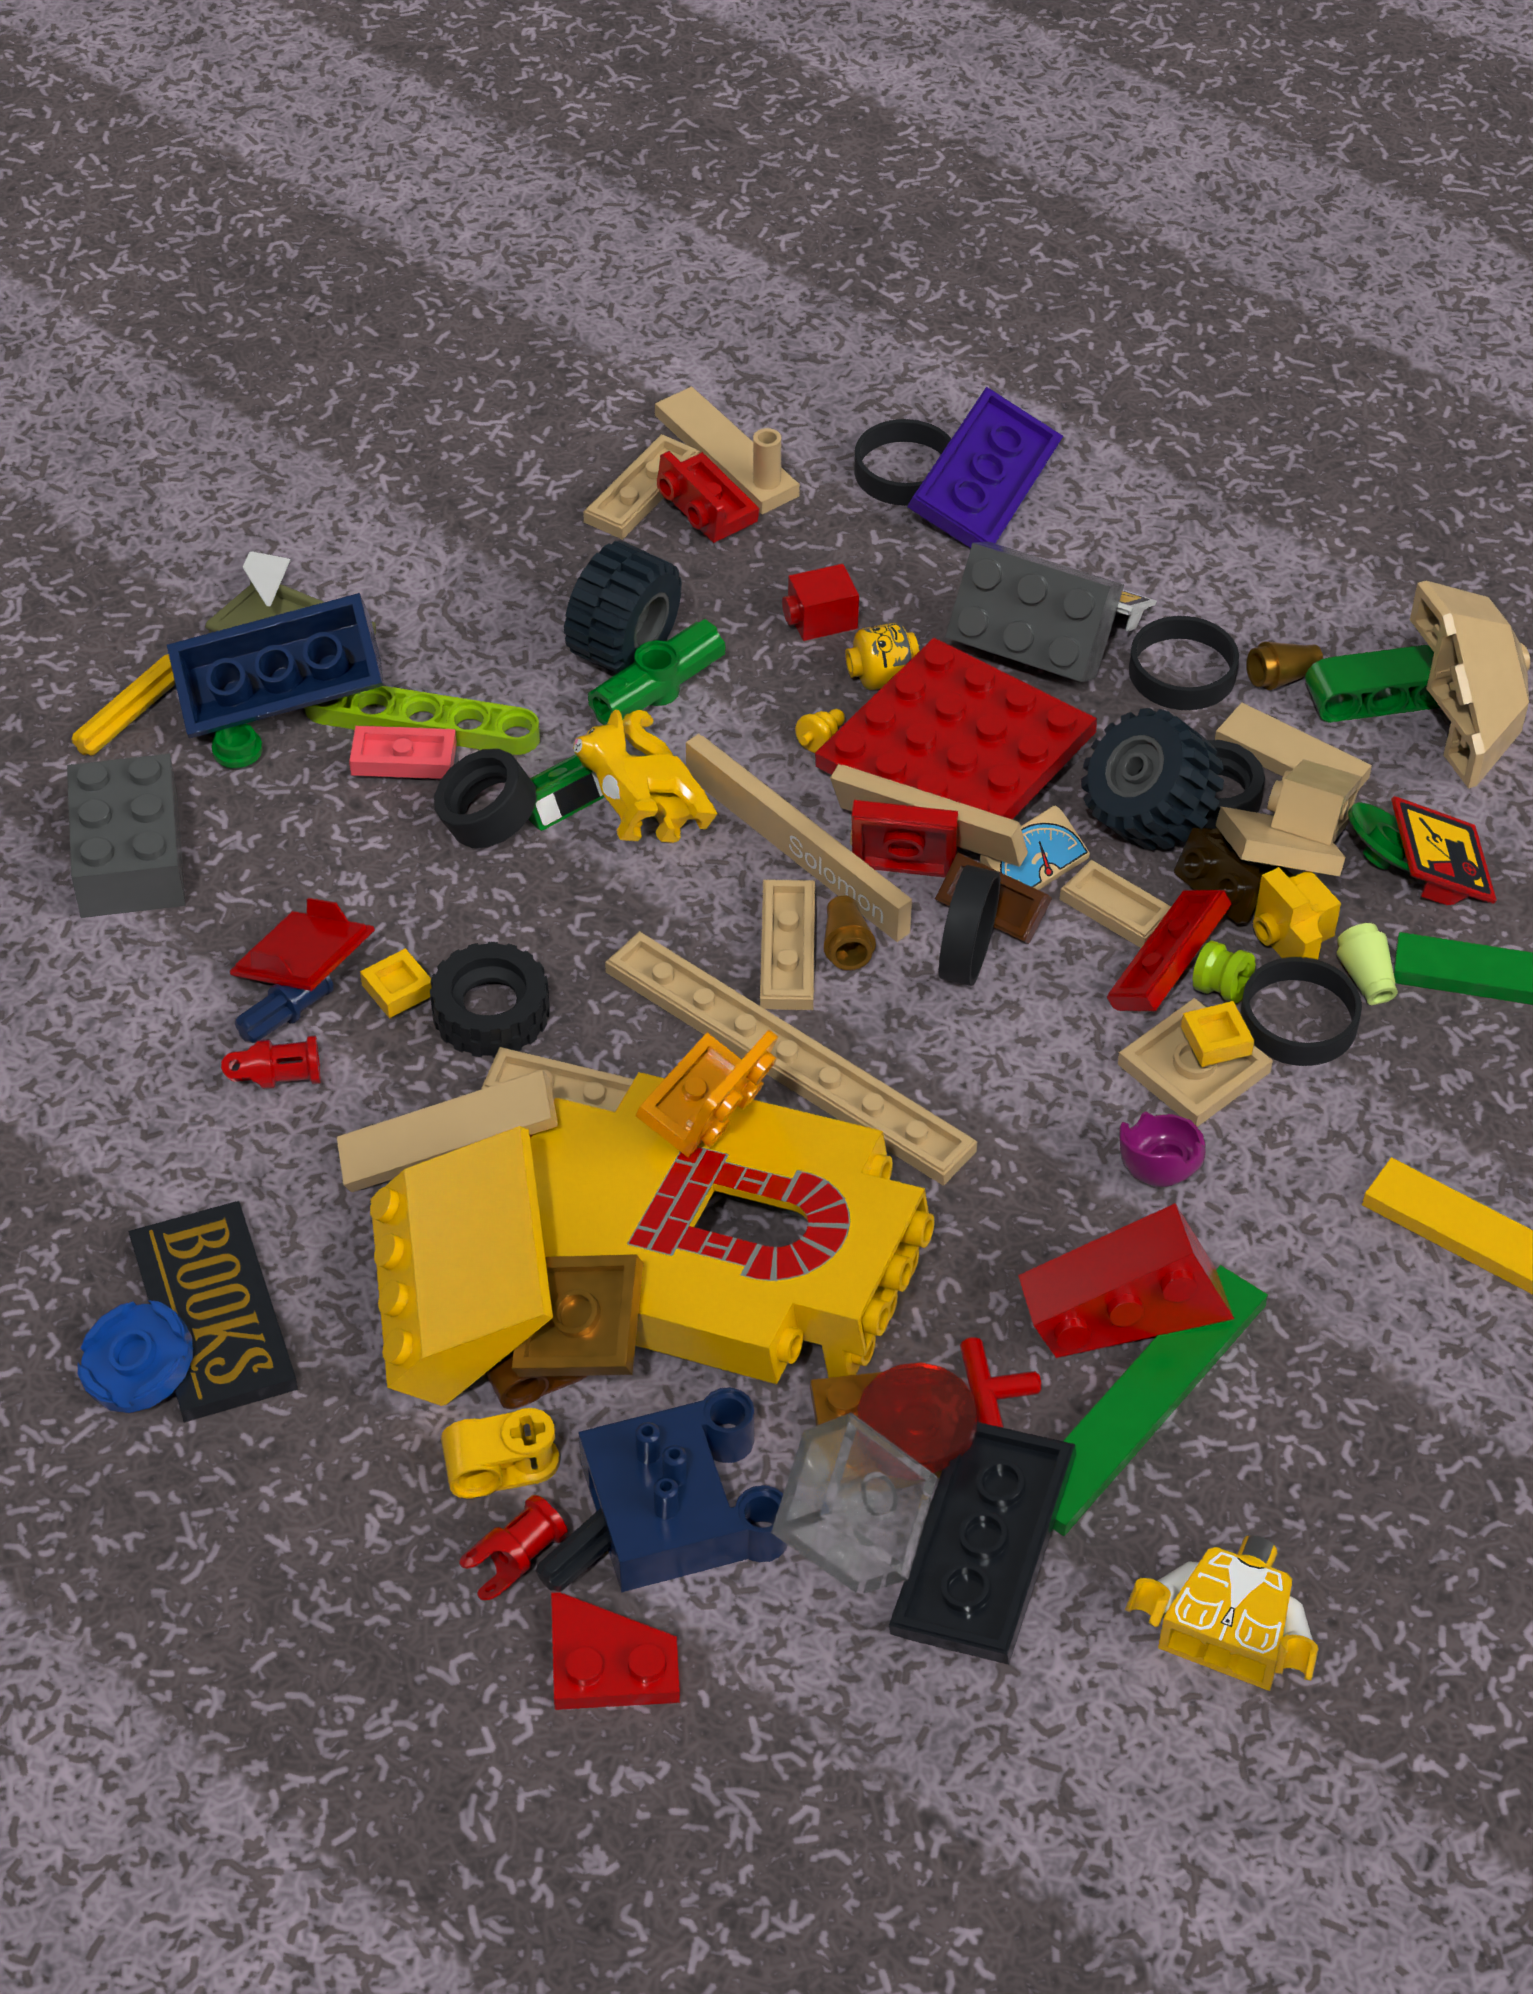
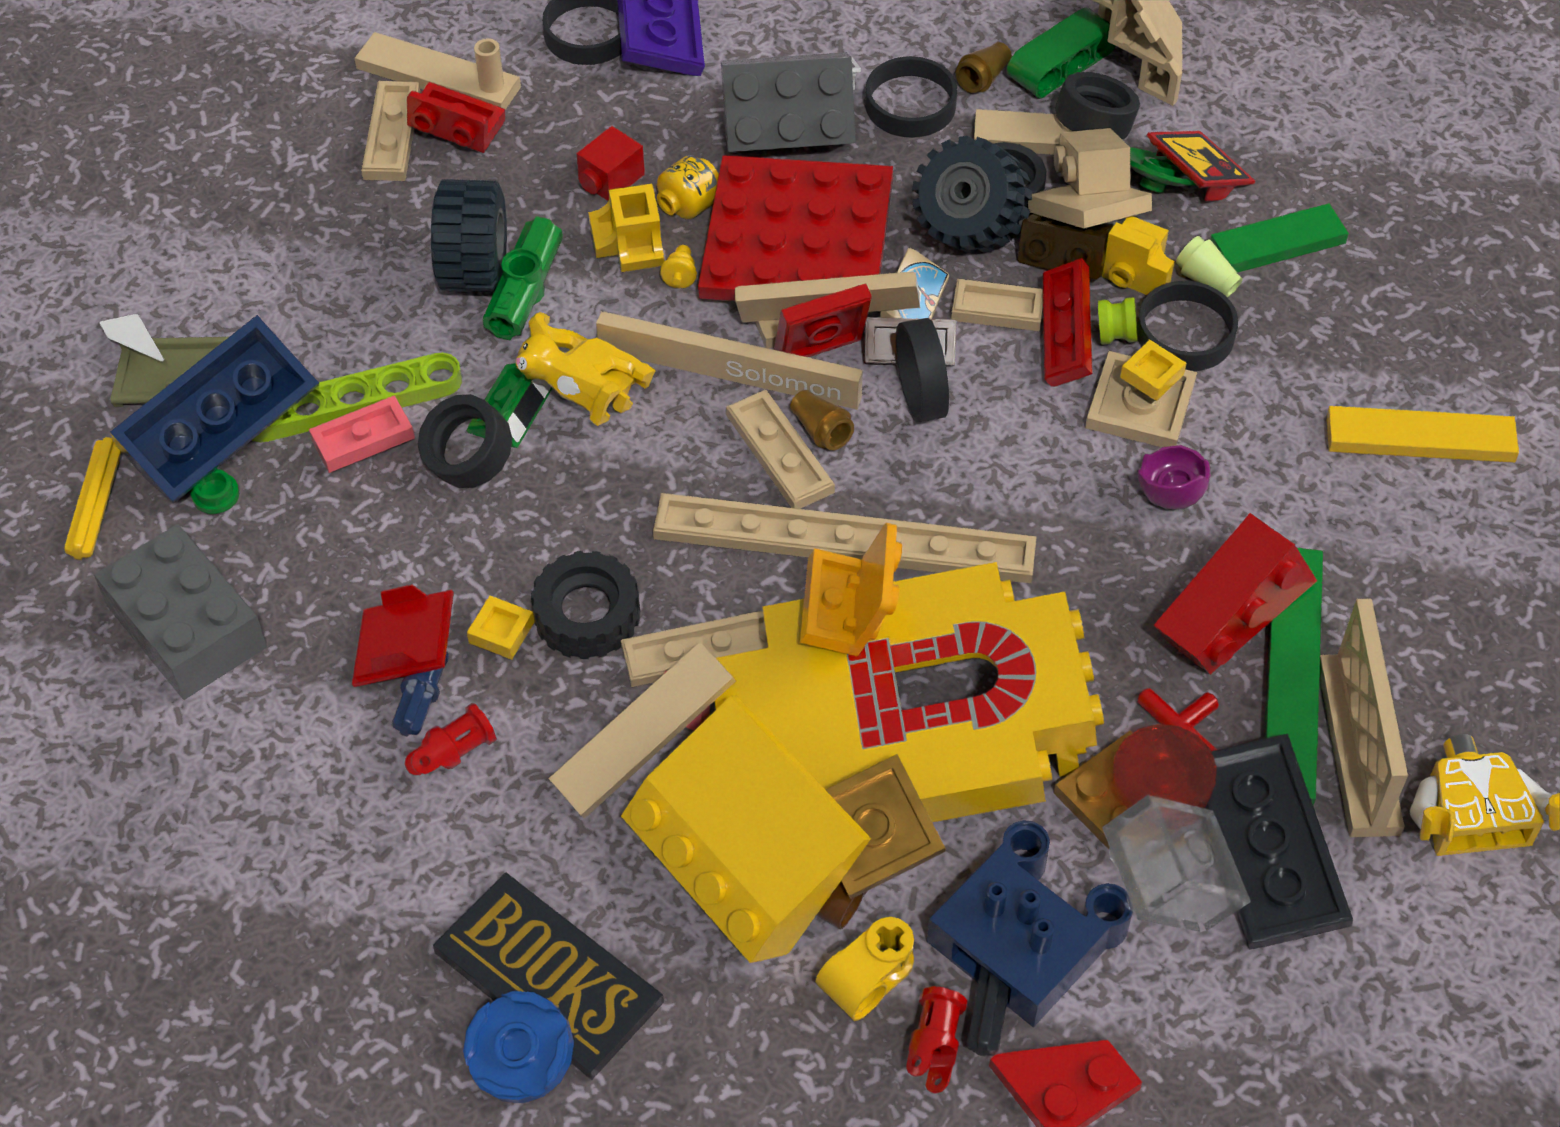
camera: 30 degrees left, 5 degrees up
(793, 670) = (629, 228): none -> yellow brick
(1165, 1482) = (1364, 728): none -> tan fence
(1382, 735) = (1097, 102): none -> black tyre

